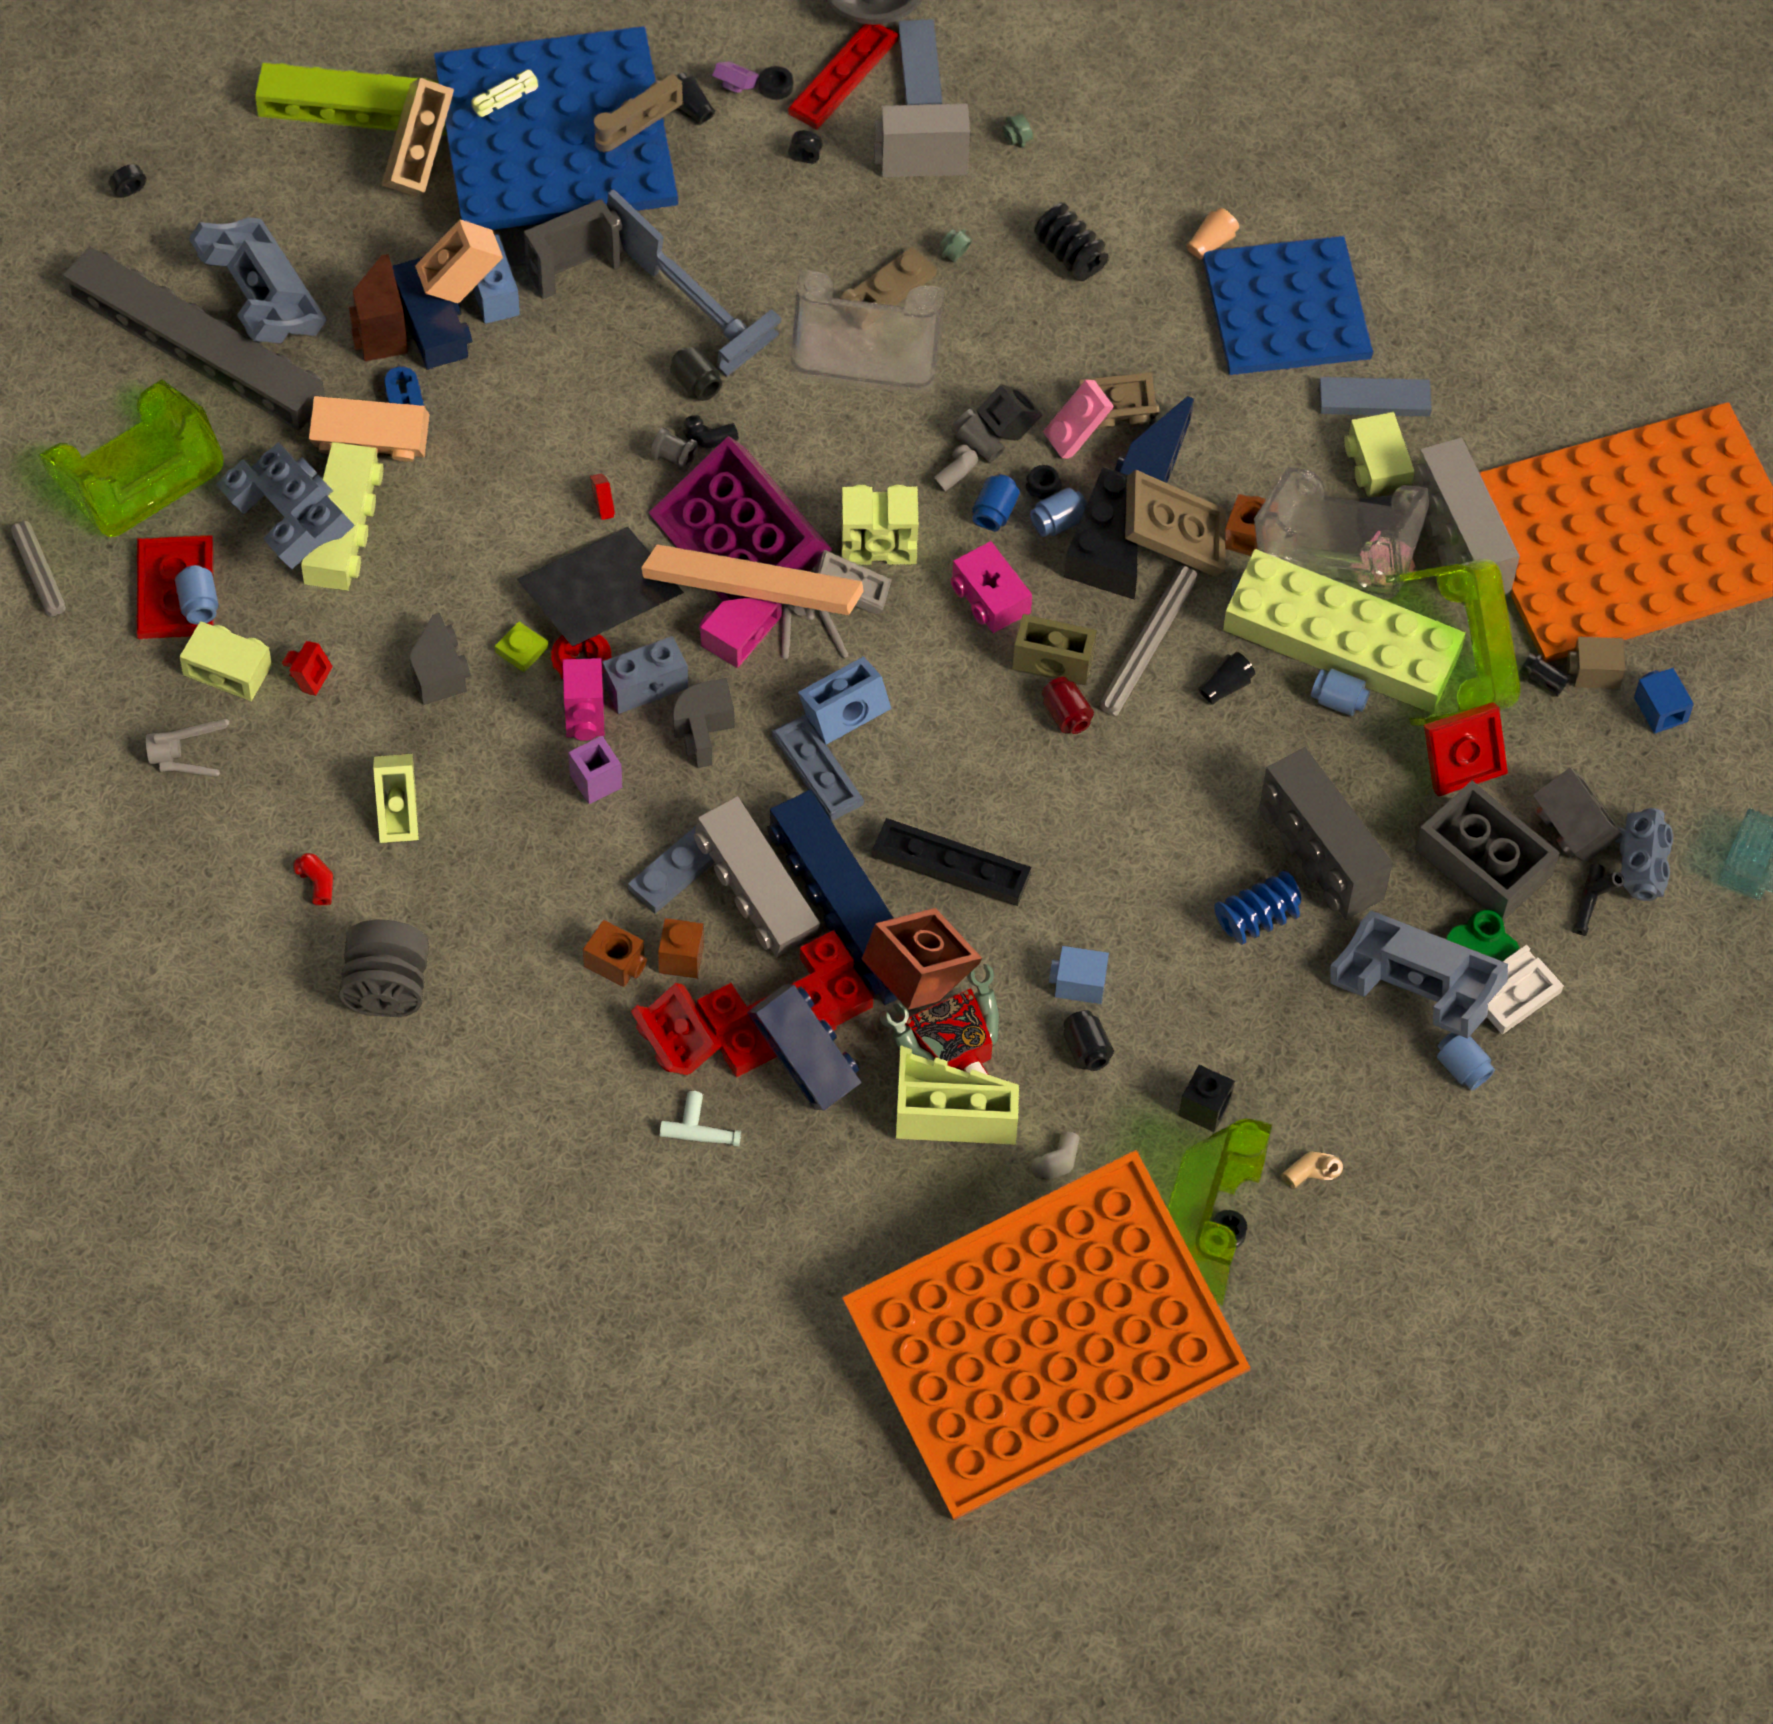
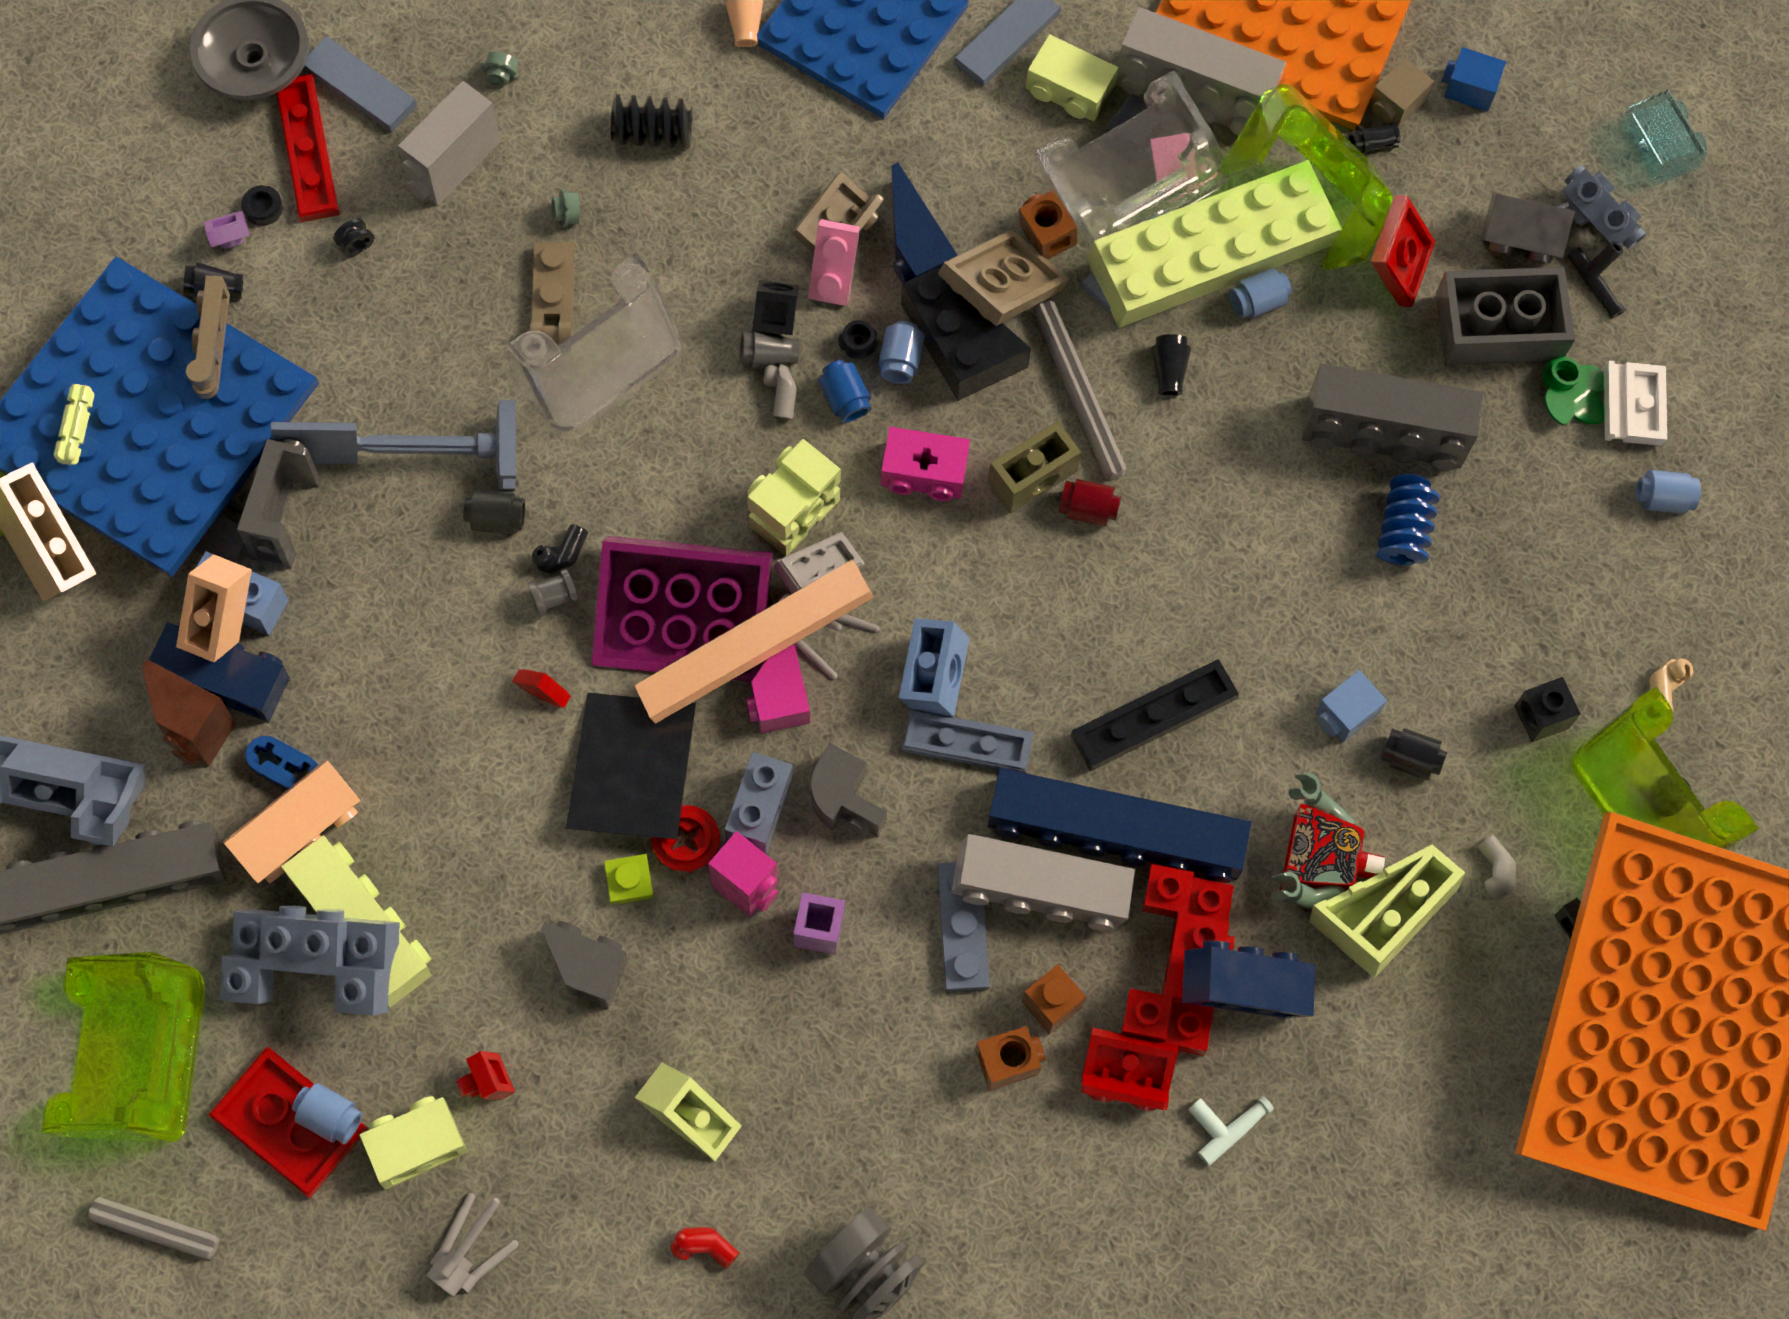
camera: 50 degrees left, 10 degrees up
(919, 957) = (1255, 820): copper slope -> none
(1424, 964) = (1574, 447): sand blue bracket -> none

